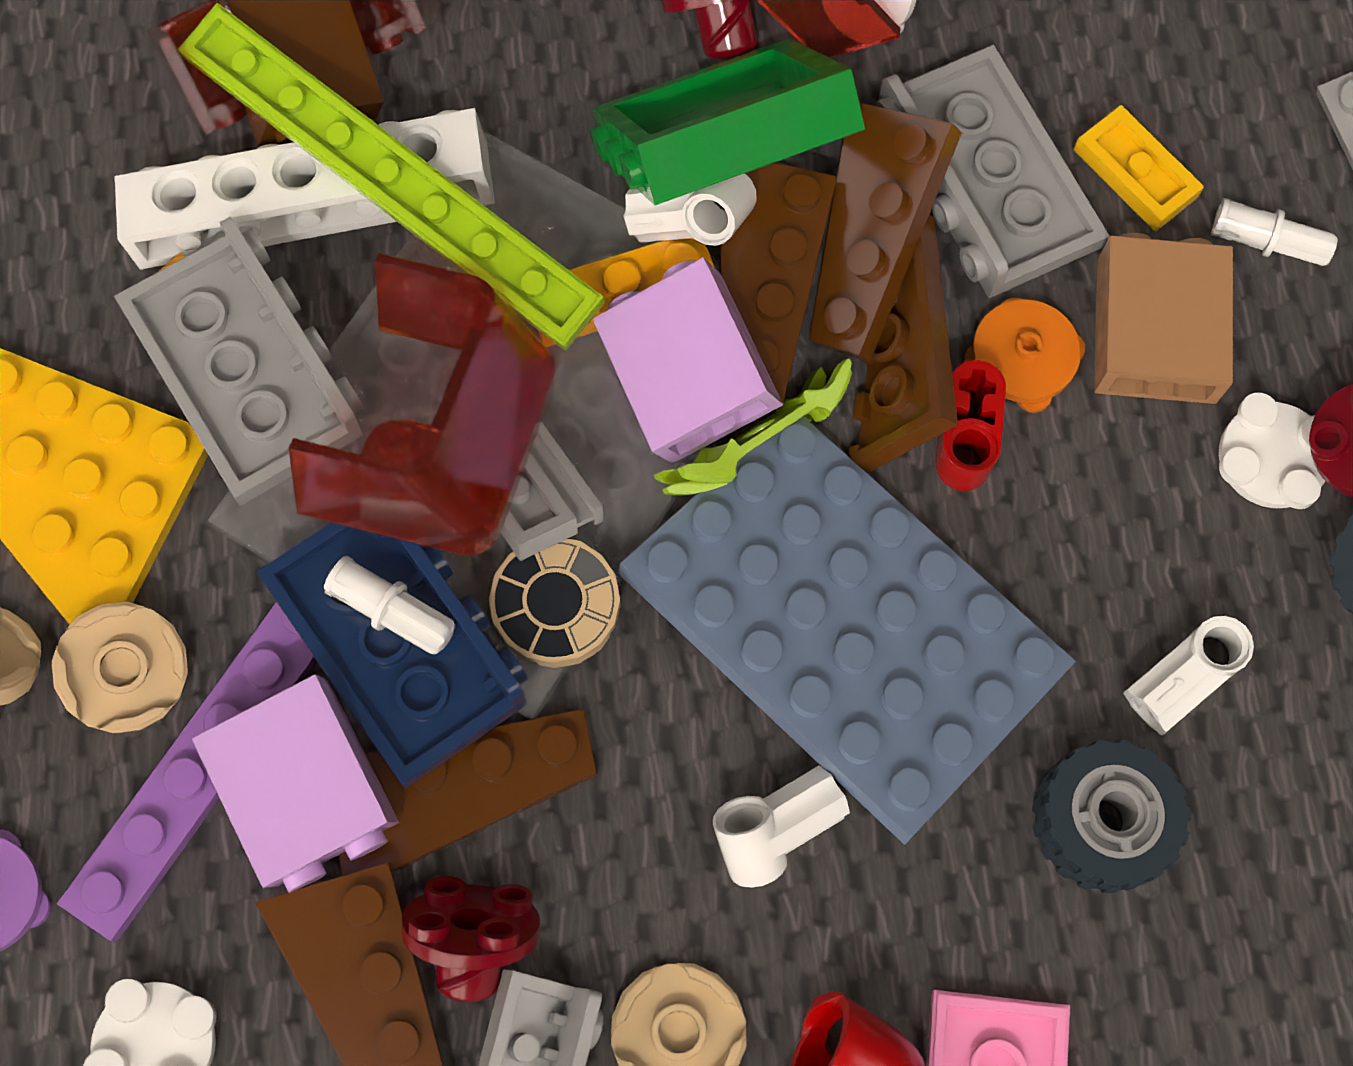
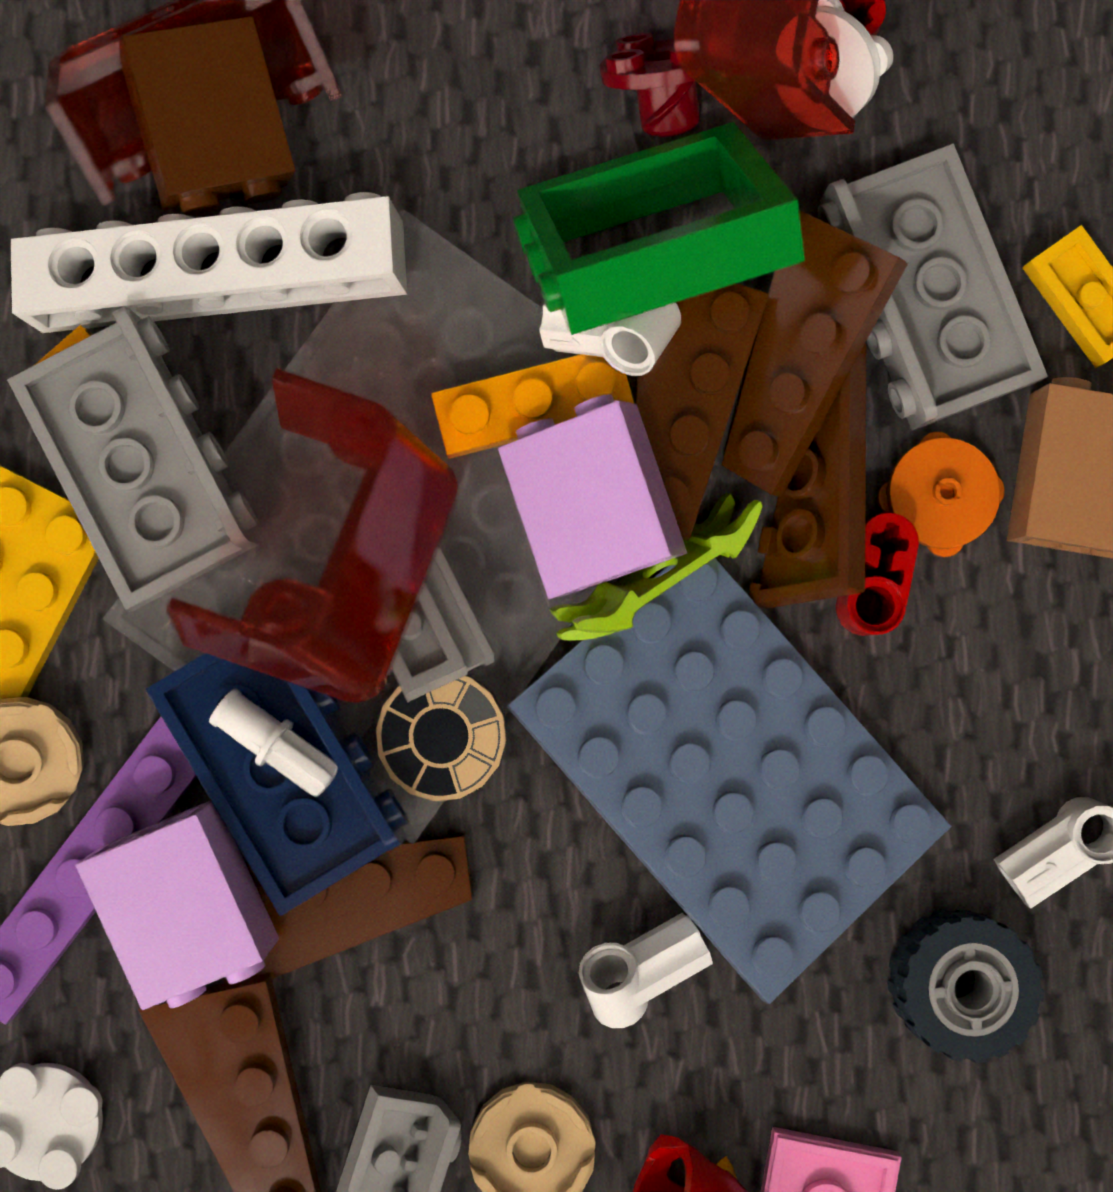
camera: 10 degrees right, 15 degrees up
(392, 176) = (290, 269): lime tile -> none
(470, 933) = (340, 1051): dark red plate -> none

